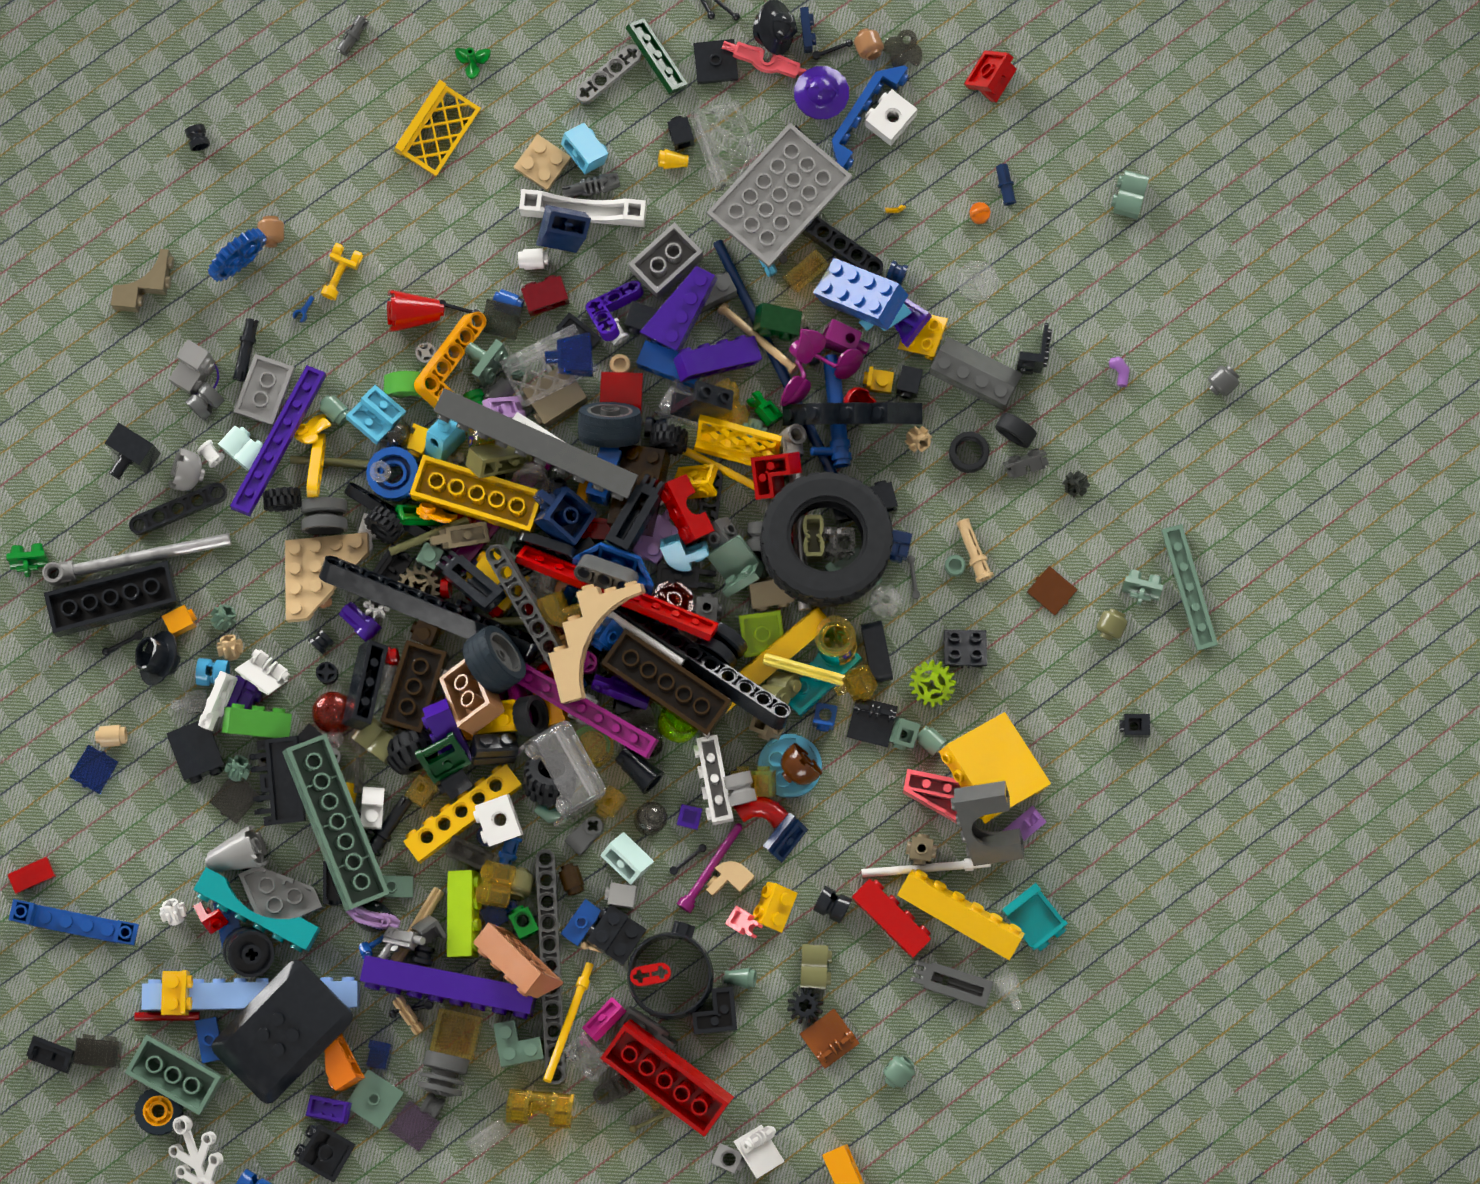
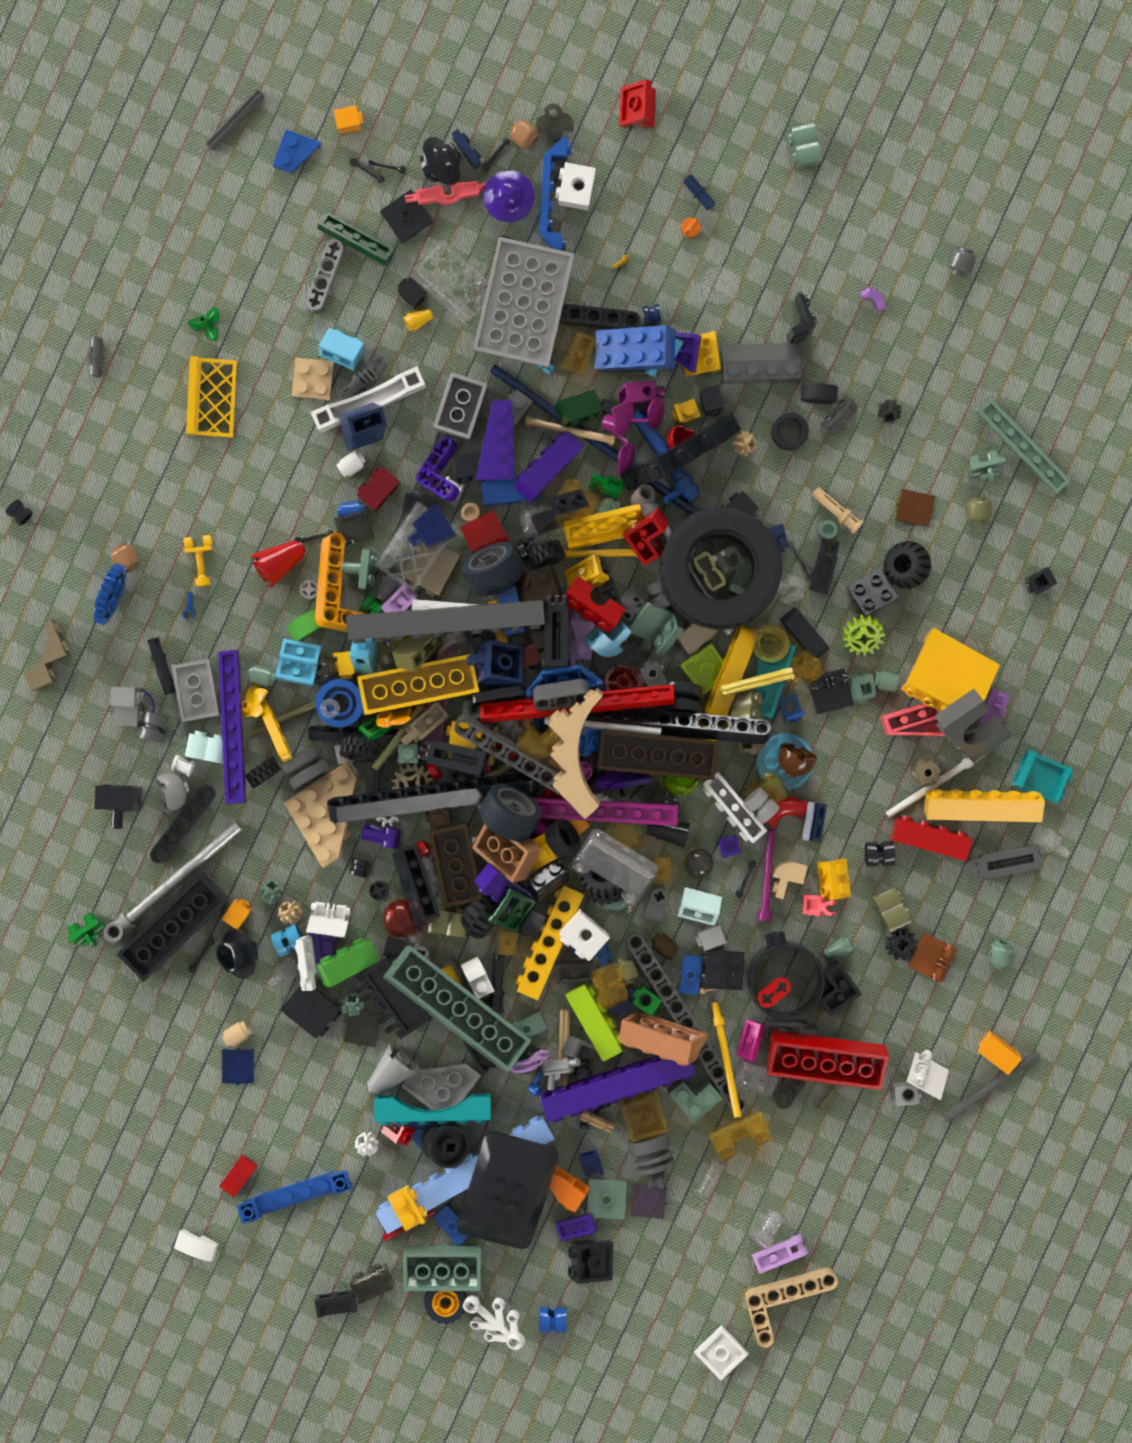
camera: 35 degrees left, 10 degrees up
(930, 600) = (824, 568): none -> black hinge
(1013, 639) = (900, 574): none -> black wheel

